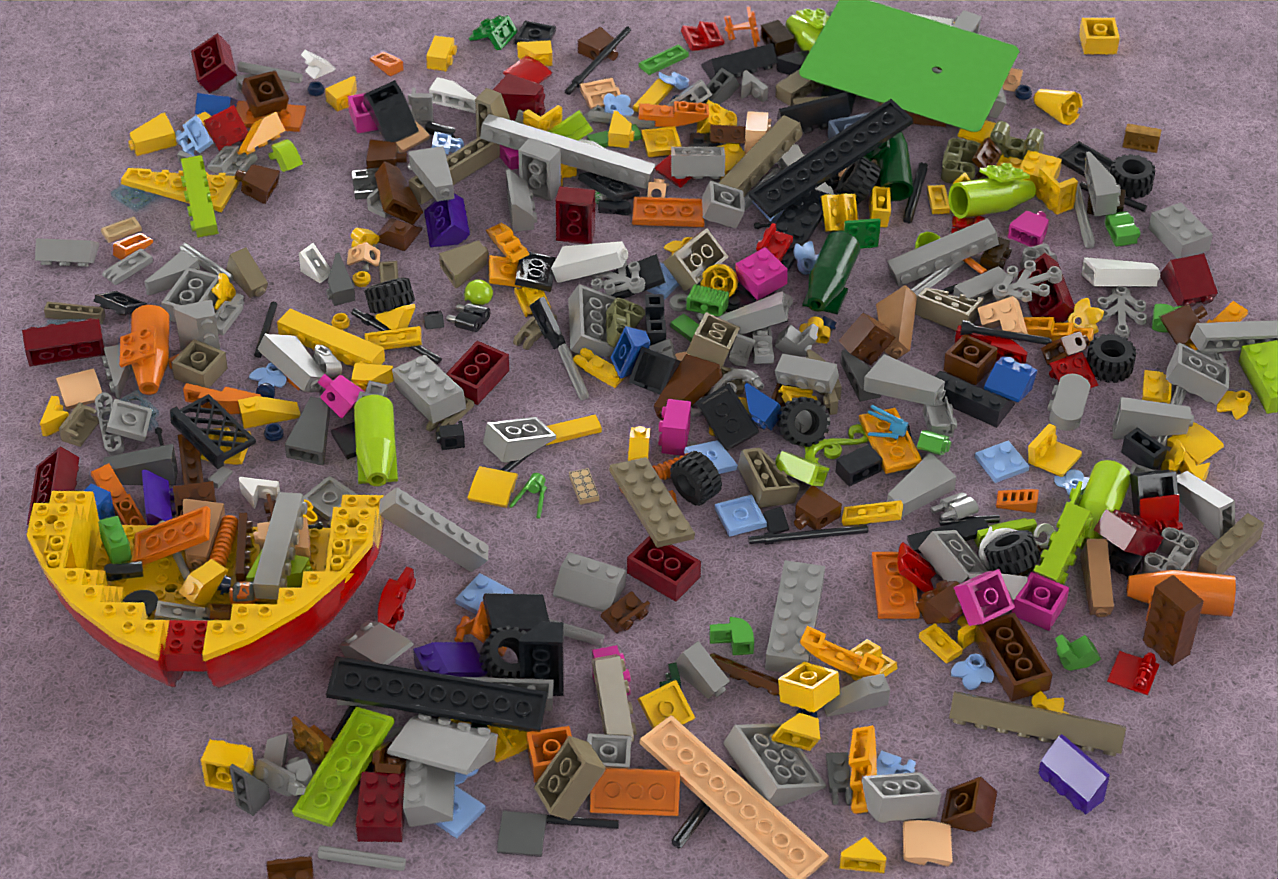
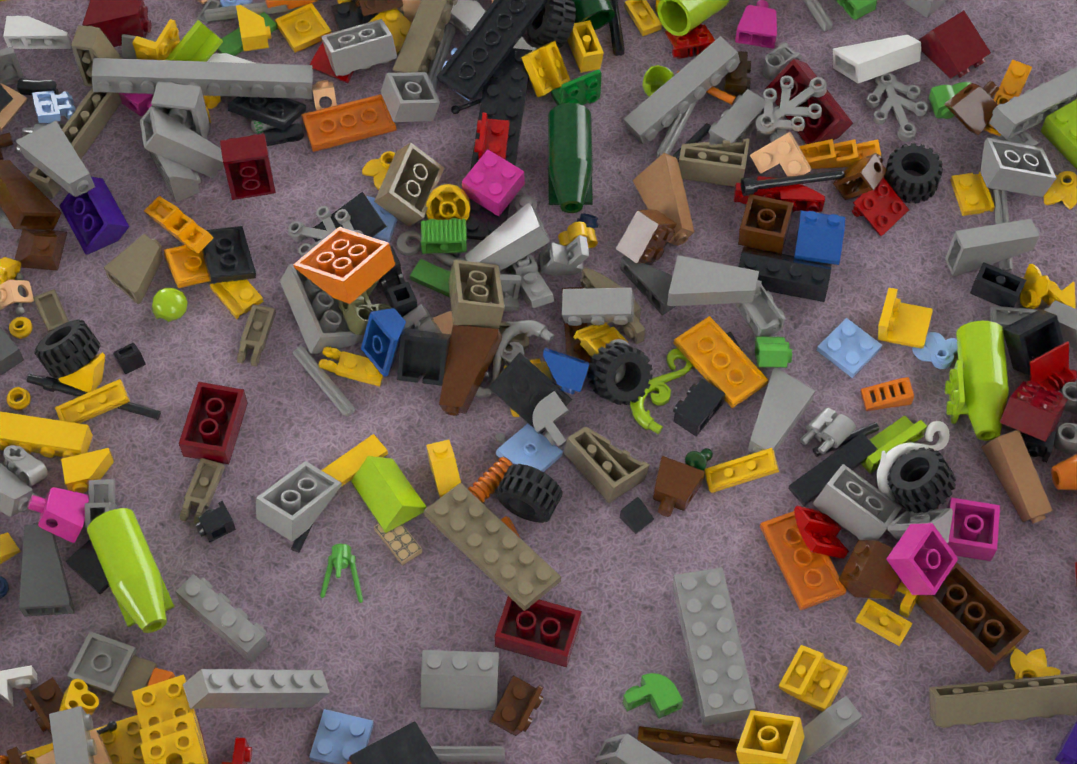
camera: 20 degrees left, 15 degrees up
(428, 490) = (222, 618): none -> light grey brick
(429, 389) = (165, 466): light grey brick -> none
(470, 317) = (175, 342): black piece -> none
(492, 486) = (291, 577): yellow slope -> none
(530, 186) = (179, 143): none -> light grey slope
(547, 322) = (270, 326): black hinge -> none
(588, 259) = (284, 222): white slope -> none
(588, 452) = (387, 492): none -> lime slope
(622, 292) = (346, 263): none -> orange slope
(675, 427) = (475, 427): dark pink brick -> none
(734, 432) = (546, 414): none -> light grey brick
(740, 515) = (593, 521): light blue plate -> none
(770, 538) = (638, 540): black bar -> none
(802, 468) = (640, 436): lime slope -> none
(805, 255) = (531, 140): light blue plate -> none
(838, 657) = (789, 688): light orange slope -> none
(842, 497) = (698, 459): none -> dark green piece
(897, 425) = (726, 345): dark azure plant -> none
(972, 674) = (932, 651): light blue plate -> none
(1064, 543) = (973, 449): lime wedge -> none
(1068, 402) = (893, 247): light grey brick -> none
(1077, 654) = (1036, 584): bright green brick -> none
(1088, 315) = (865, 124): yellow plate -> none
(1198, 443) = (1048, 255): yellow slope -> none

